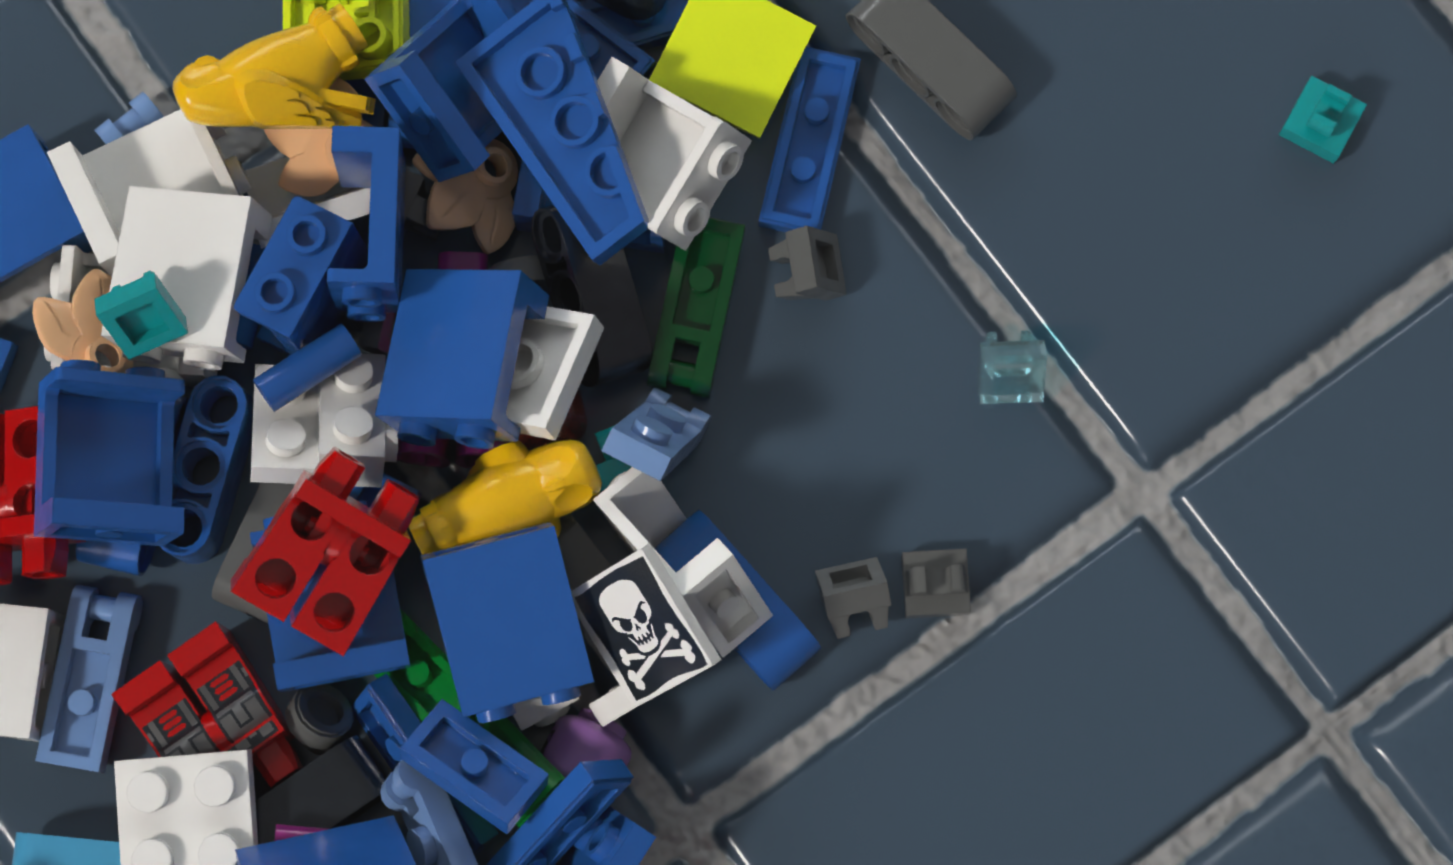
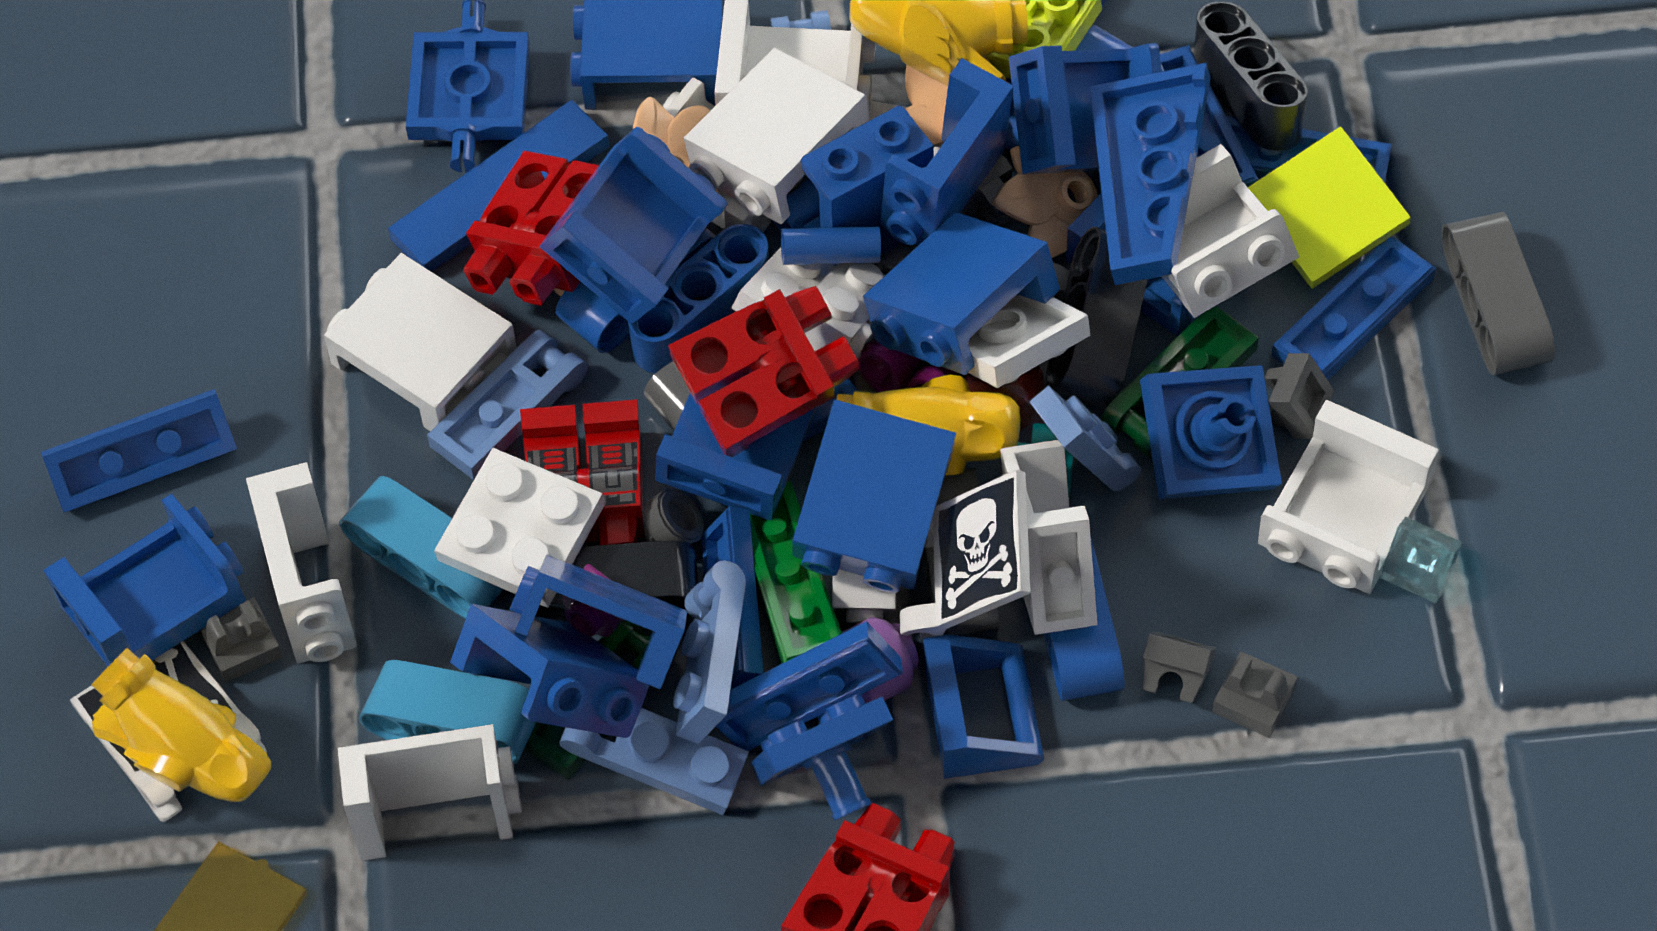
camera: 30 degrees right, 20 degrees down
(141, 315) = (725, 127): teal tile -> none
(474, 766) = (777, 591): blue plate -> none
(680, 764) = (976, 755): none -> blue tile
(758, 351) = (1210, 432): none -> blue plate
(912, 345) = (1348, 497): none -> white panel

